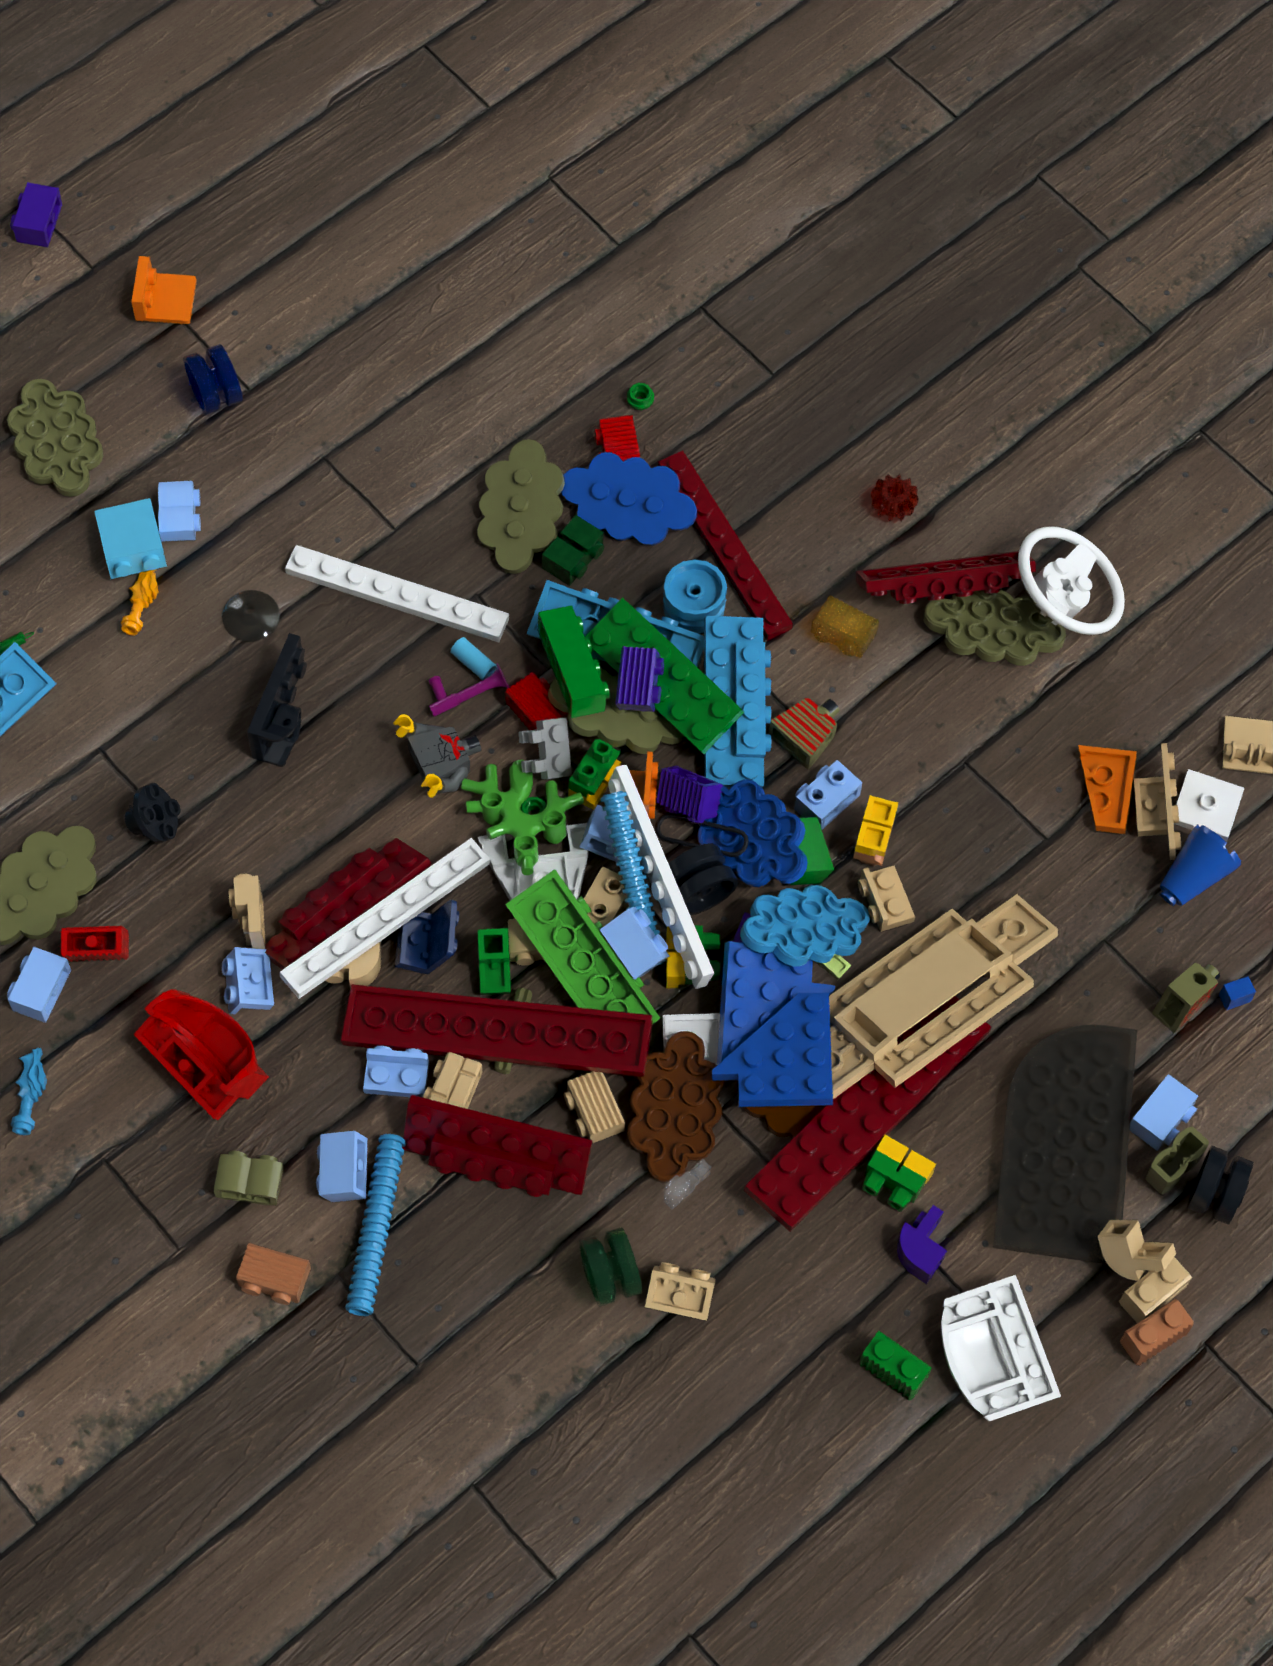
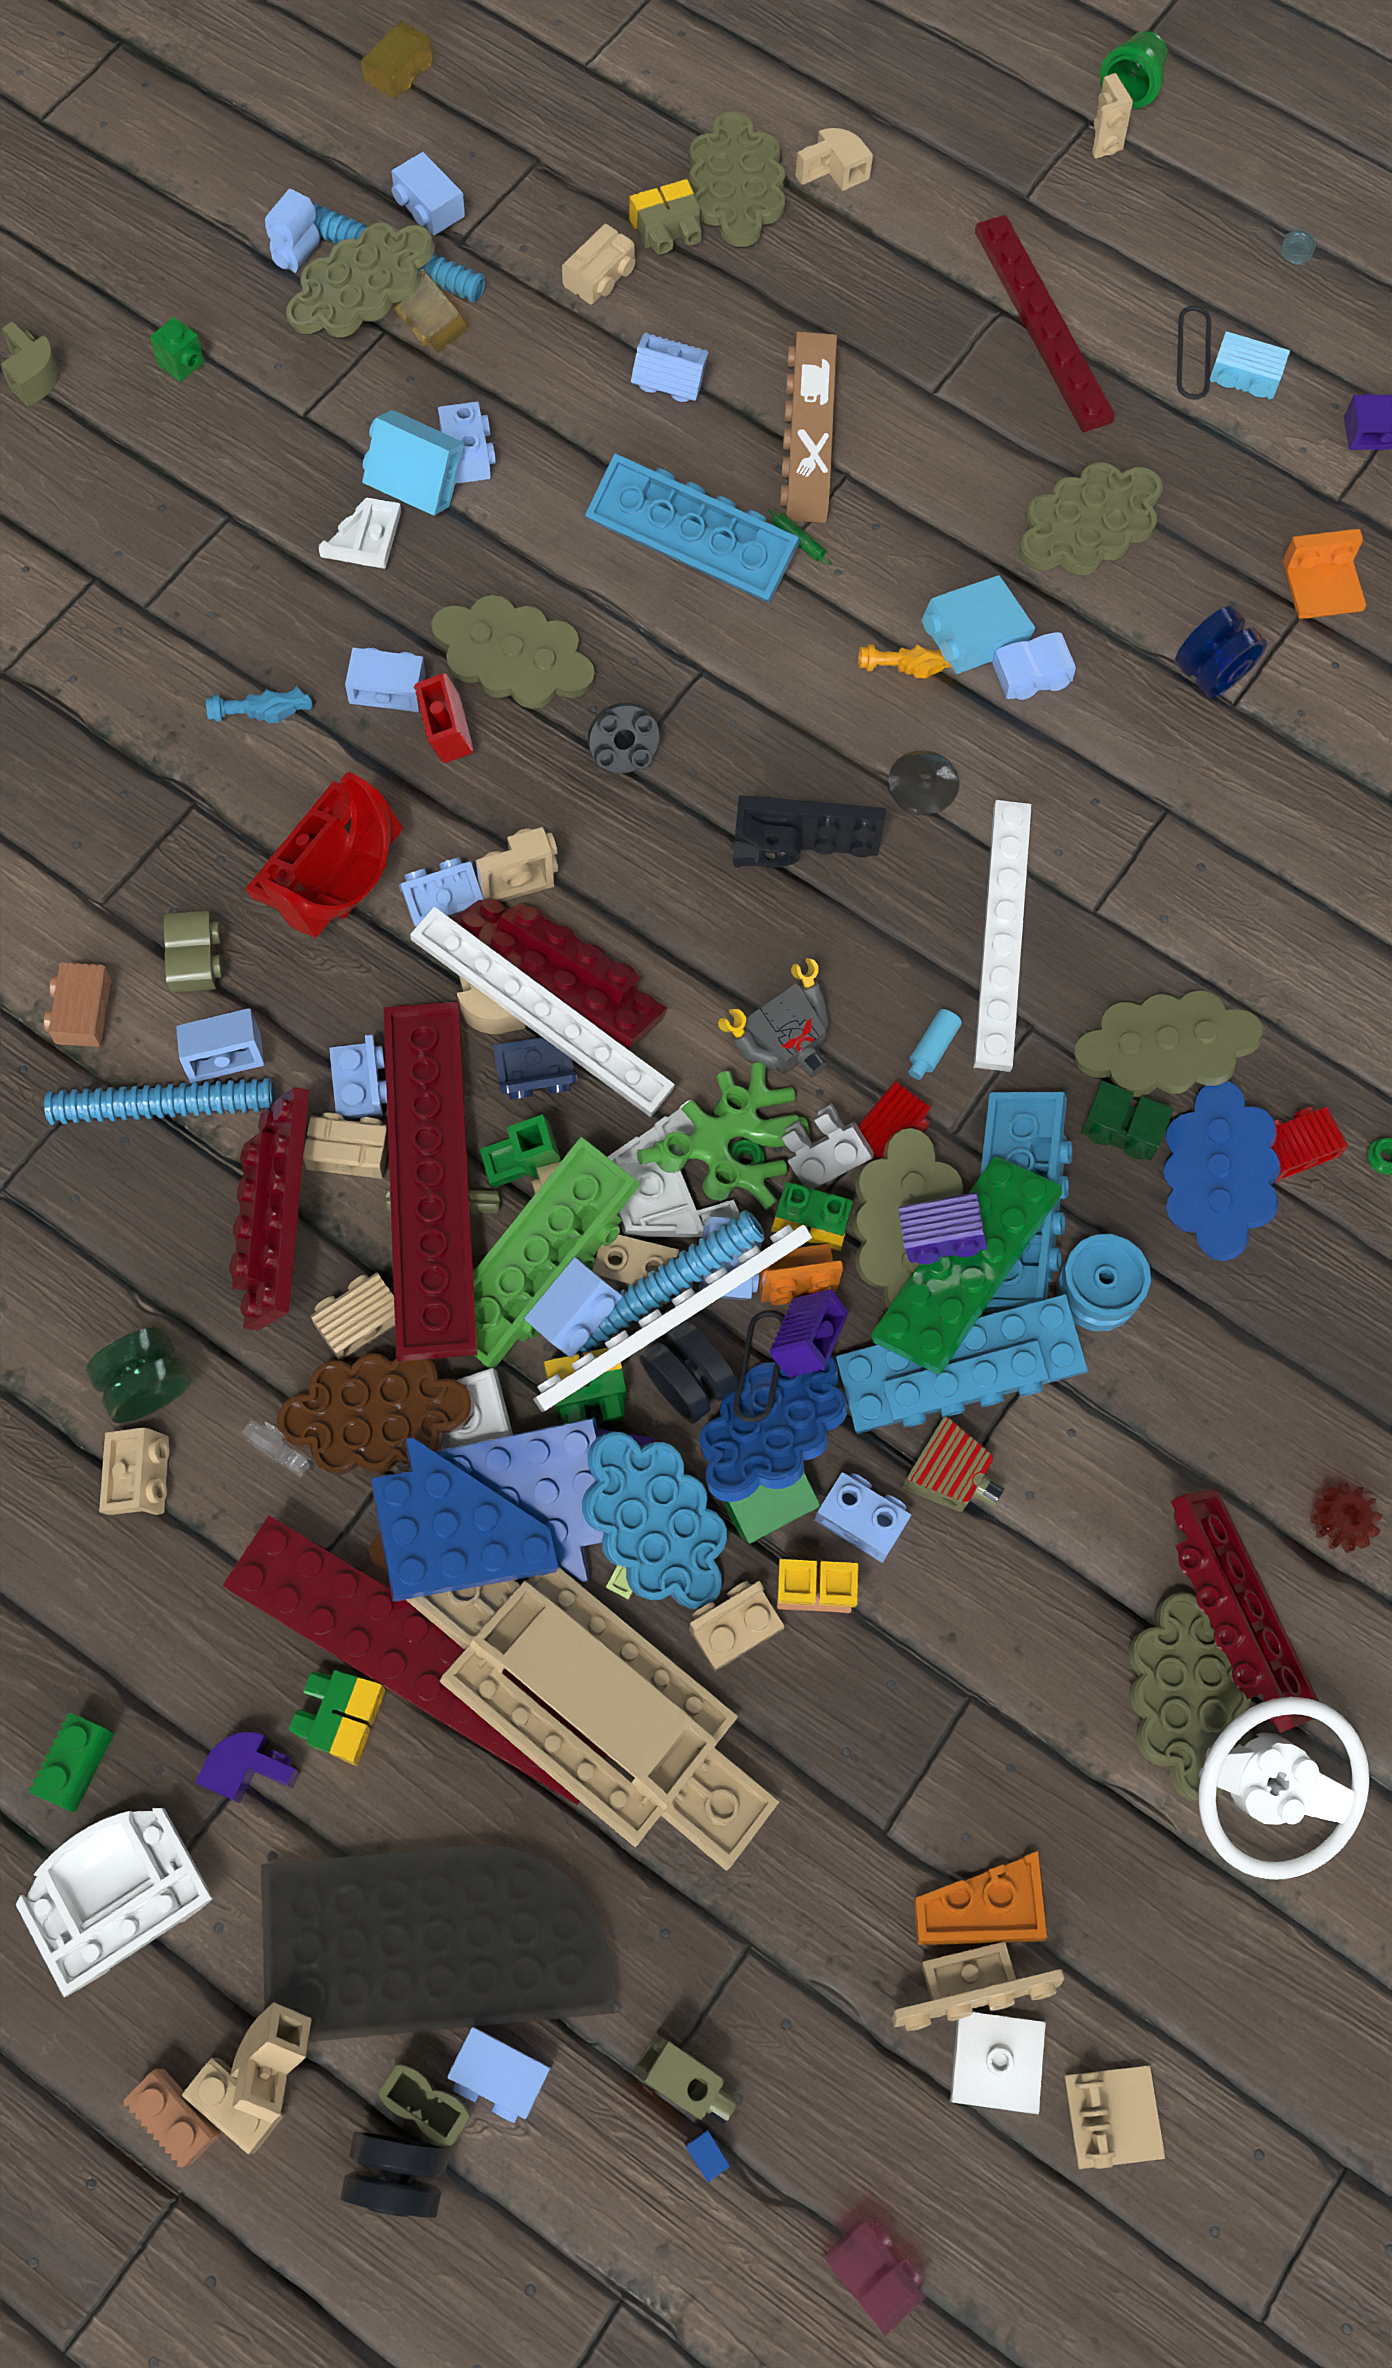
camera: 75 degrees right, 5 degrees up
(446, 702) = (911, 1071): magenta piece -> none
(572, 661) = (947, 1144): green brick -> none
(729, 550) = (1199, 1312): dark red plate -> none
(844, 627) = (1121, 1490): clear yellow brick -> none
(1197, 866) = (885, 2060): blue cone -> none

